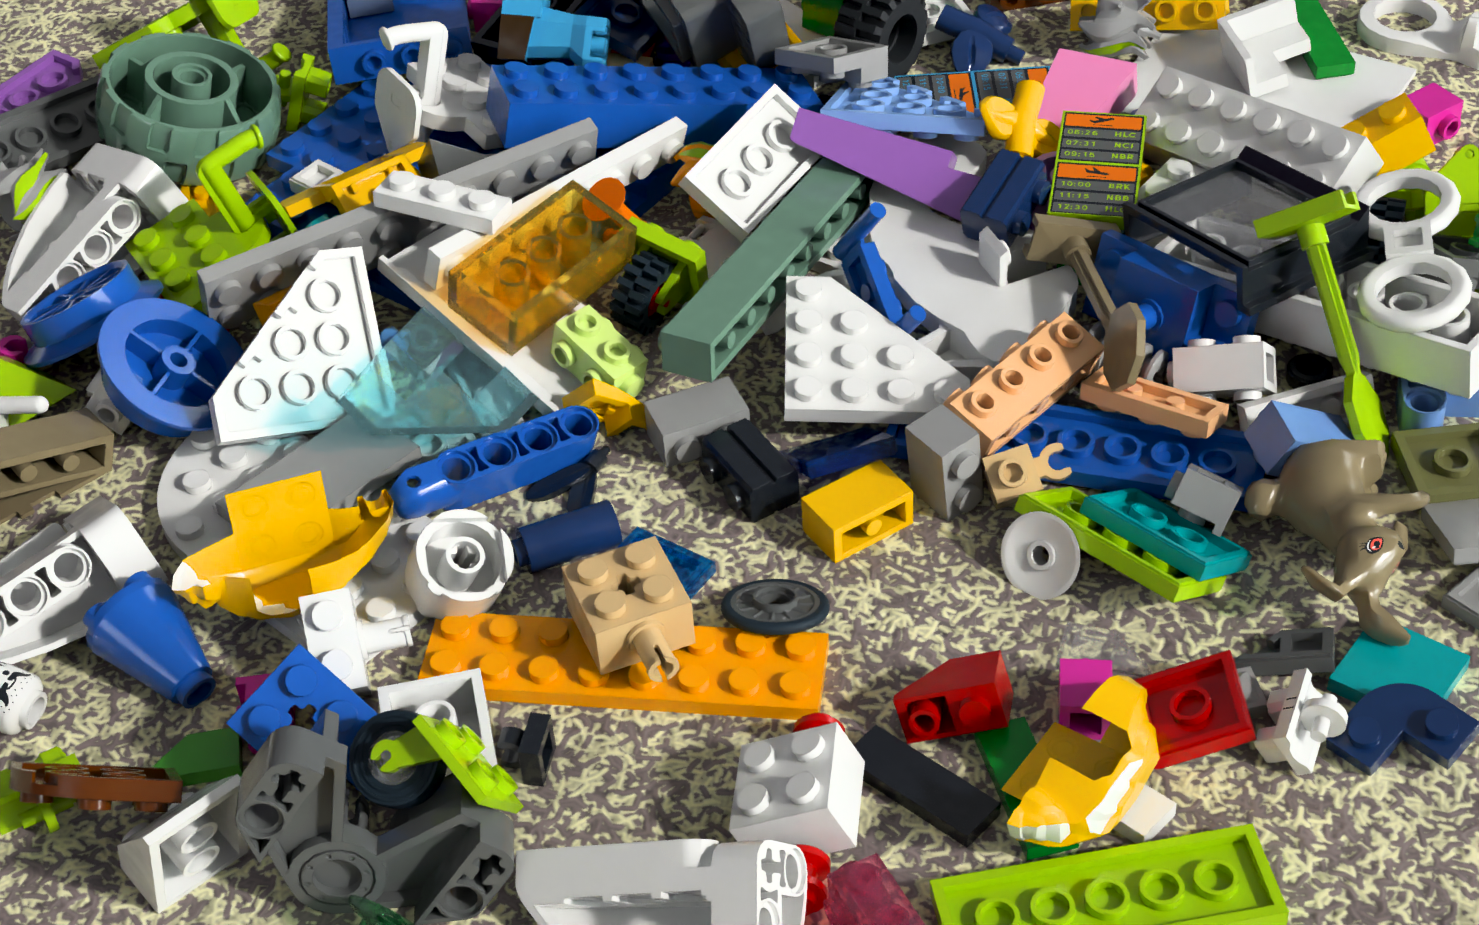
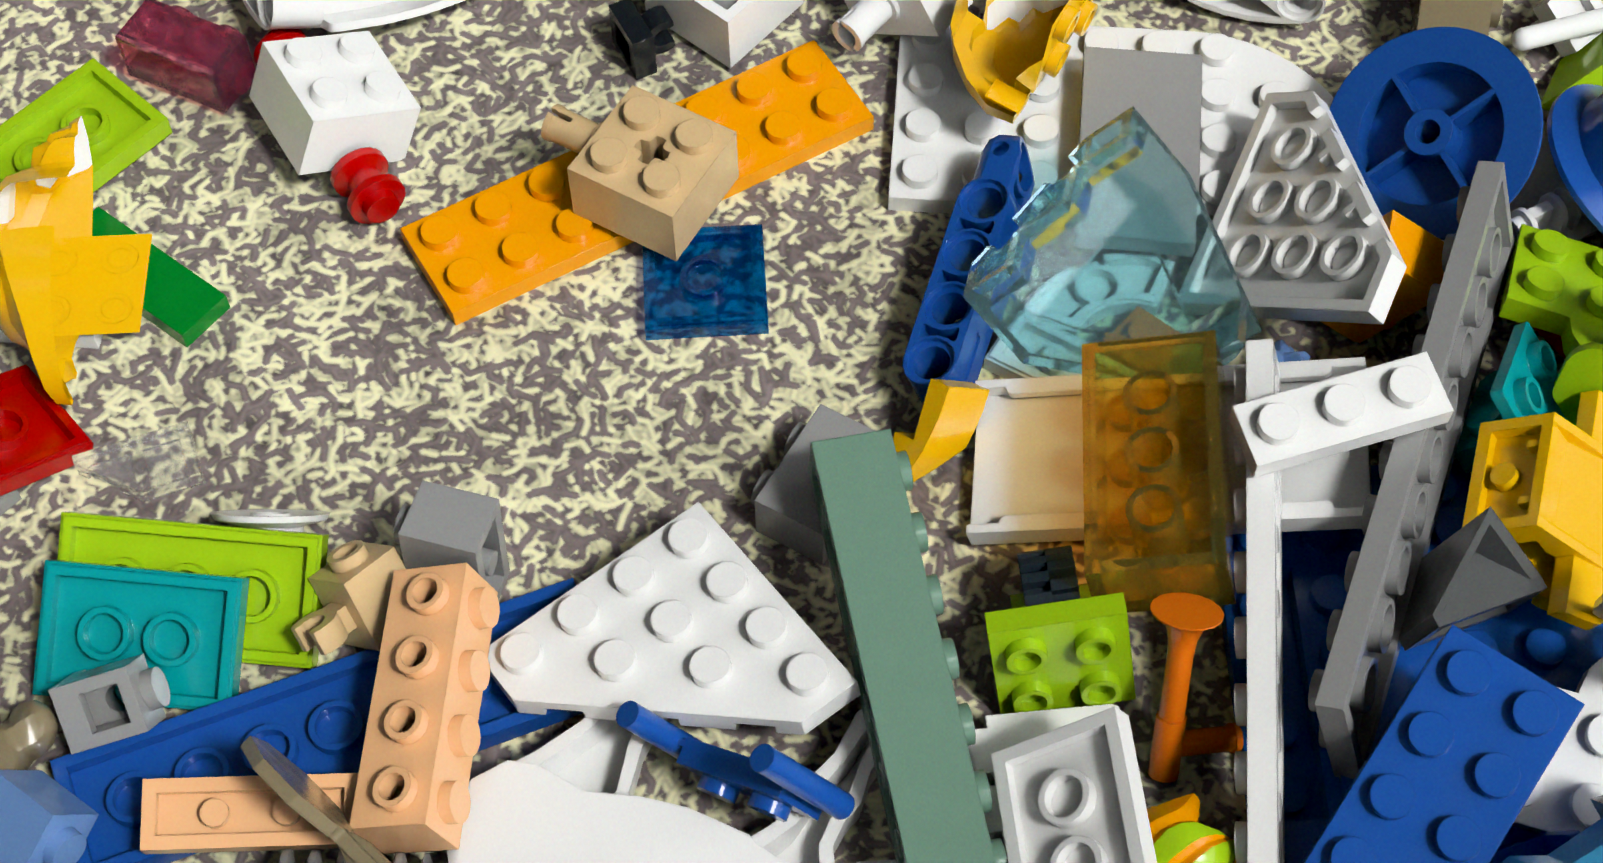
camera: 140 degrees right, 15 degrees up
(458, 565) = (871, 120): white brick -> none
(567, 537) = (823, 259): dark blue brick -> none
(578, 478) = (884, 350): black piece -> none
(596, 350) = (1002, 466): yellowish green brick -> none
(749, 470) = (700, 452): black brick -> none
(775, 607) = (526, 346): wheel -> none
(840, 452) = (600, 509): clear blue tile -> none
(857, 510) = (537, 467): yellow brick -> none
(926, 787) = (248, 222): black tile -> none
(956, 699) = (245, 298): red slope -> none
(1075, 686) = (124, 381): dark pink brick -> none

